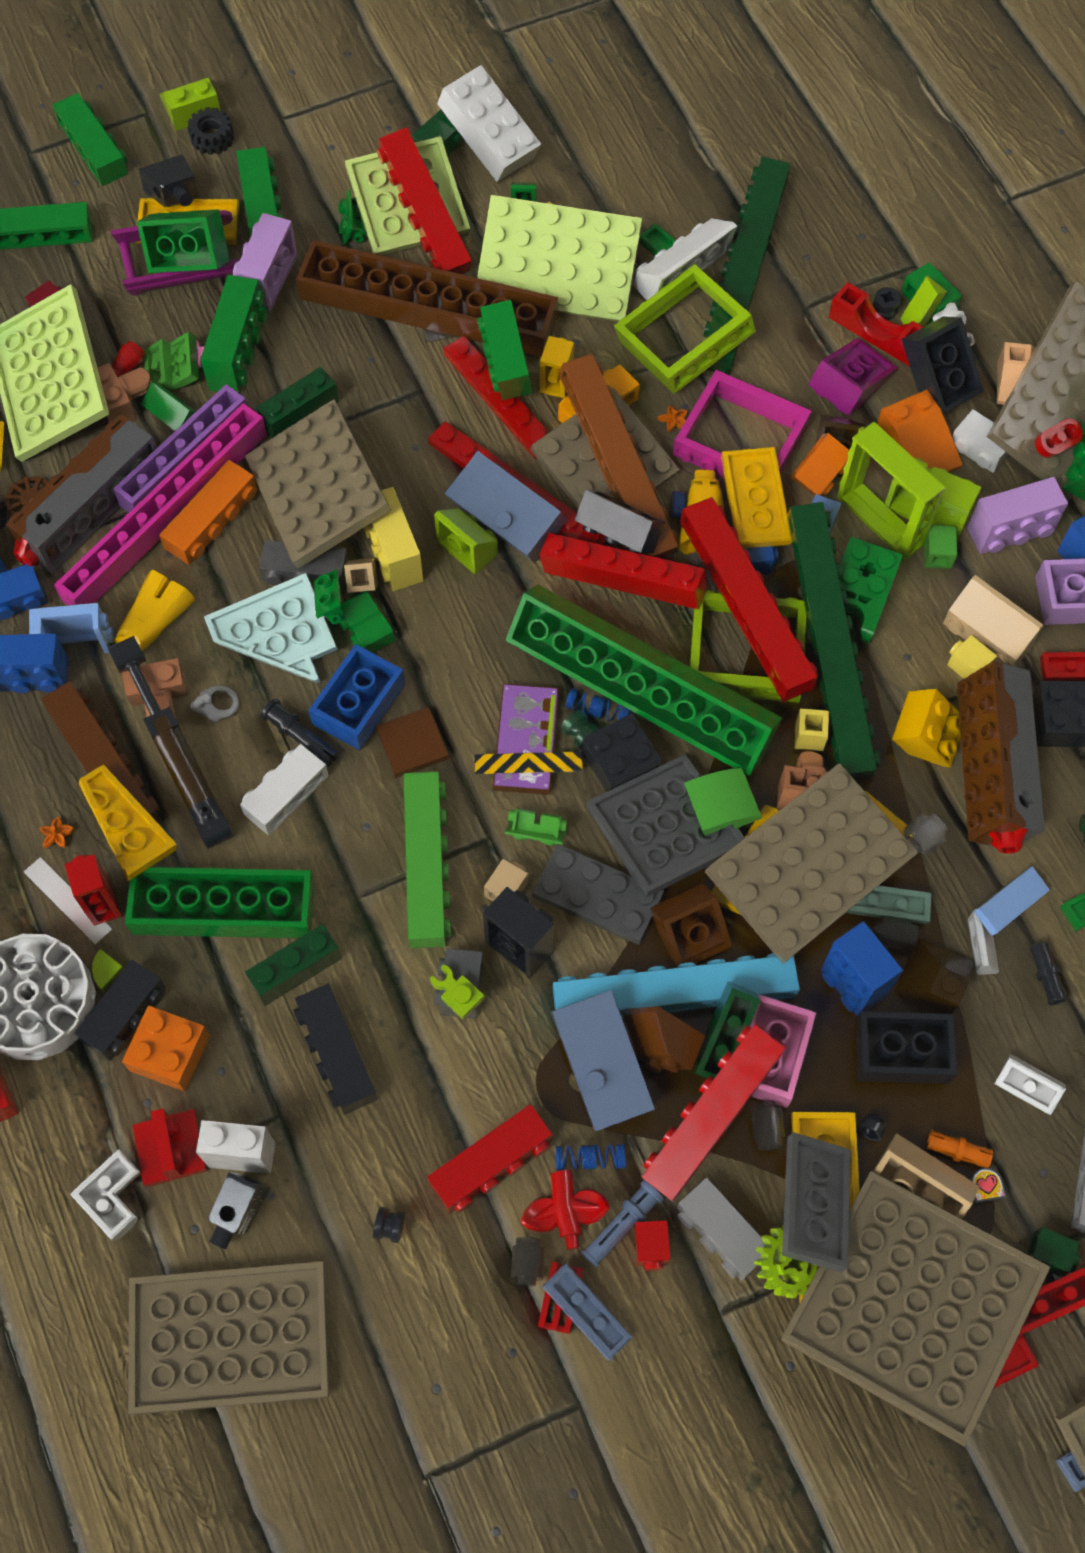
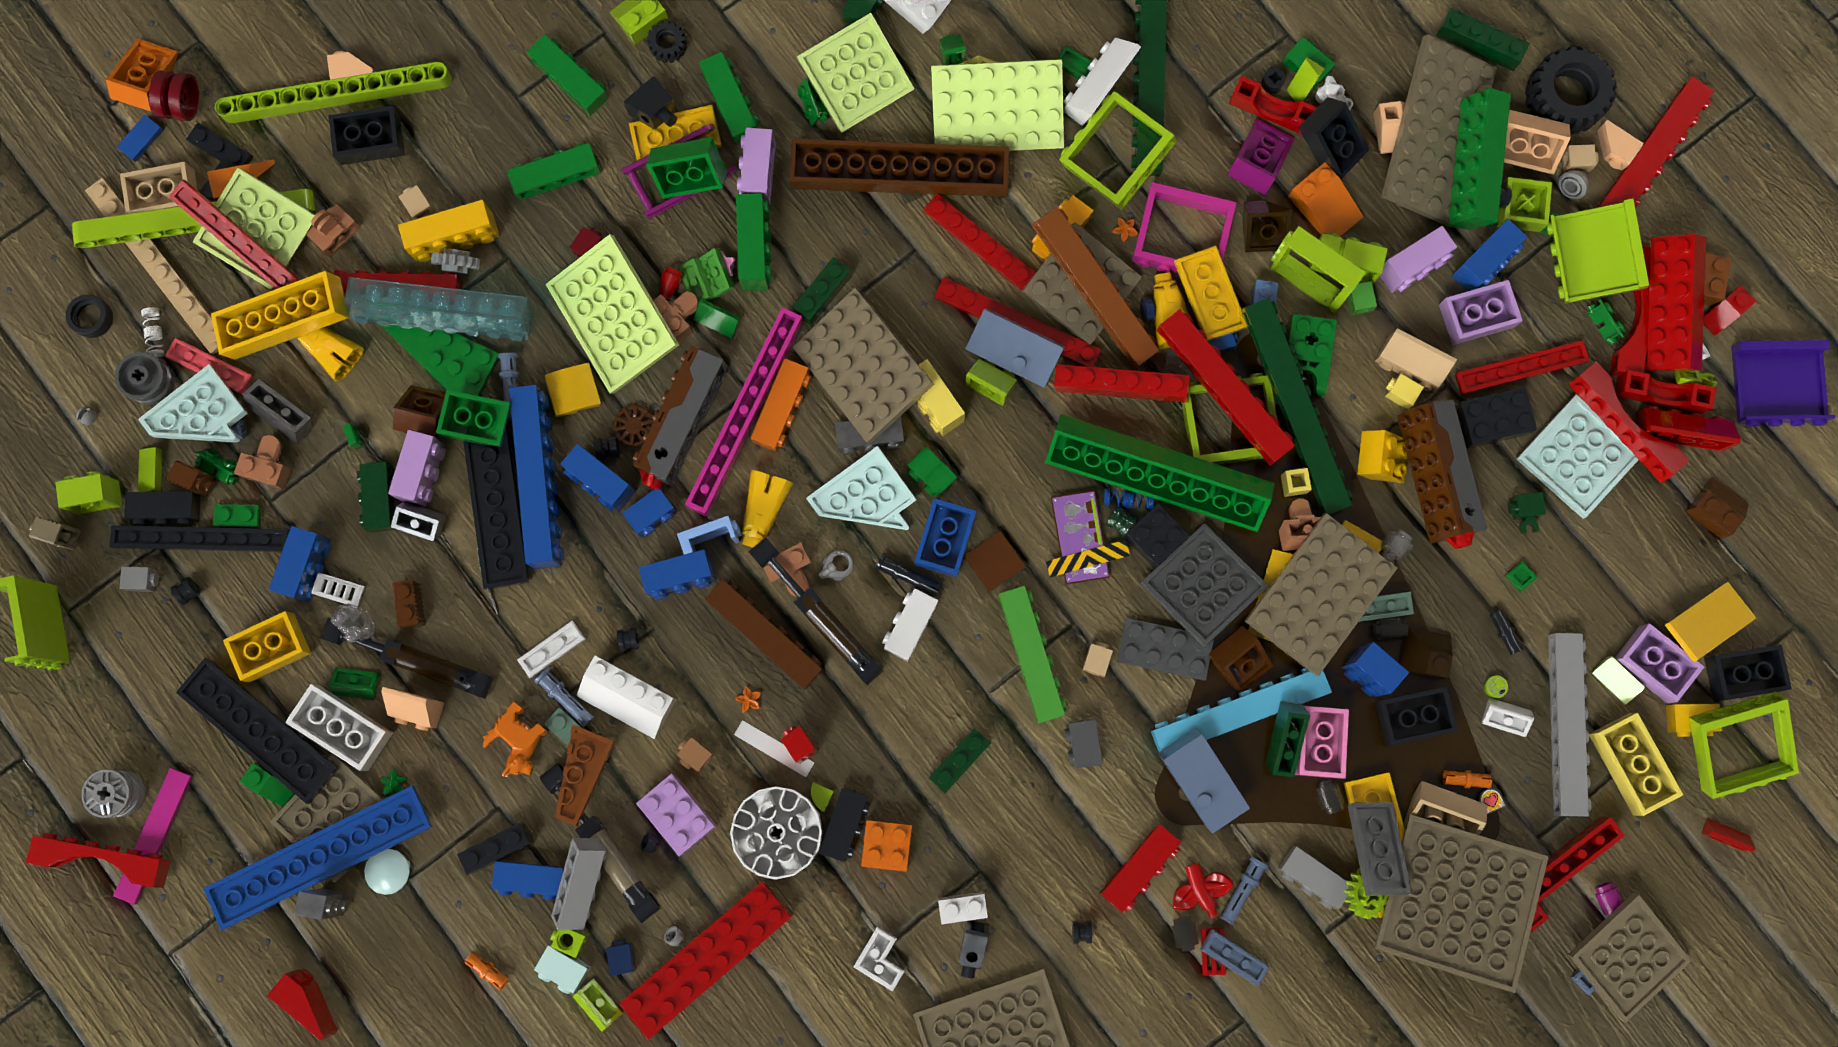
camera: 10 degrees left, 15 degrees up
(128, 827) = (808, 689): yellow wing -> none
(168, 1147) = (910, 914): red bracket -> none
(177, 448) = (742, 358): medium lavender brick -> none
(221, 902) = (892, 727): green brick -> none
(328, 597) = (900, 462): green hinge -> none
(335, 1048) = (1008, 815): black brick -> none
(361, 575) = (918, 434): tan brick -> none
(423, 202) = (874, 81): red brick -> none
(459, 994) = (1089, 757): lime plate -> none
(504, 350) = (982, 213): green brick -> none
(519, 931) = (1121, 701): black brick -> none
(522, 826) = (1097, 610): bright green hinge -> none
(554, 355) = (1023, 209): yellow brick -> none
(589, 1157) = (1209, 849): blue piece -> none
(619, 522) = (1110, 344): brick -> none
(652, 1245) = (1268, 901): red brick -> none
(662, 1039) = (1244, 757): reddish brown slope -> none
(714, 1111) = (1293, 800): red brick -> none
(722, 800) = (1243, 558): bright green slope -> none
(821, 466) = (1255, 251): orange brick -> none
(872, 1127) = (1403, 778): black hinge -> none
(972, 441) = (1369, 192): white brick -> none
(982, 946) = (1454, 619): white slope -> none
(1011, 901) = (1470, 584): light blue tile -> none
(1021, 1040) = (1495, 686): none -> lime tile
(1055, 1251) = (1545, 837): dark green brick -> none
(1058, 438) = (1437, 187): red plate -> none

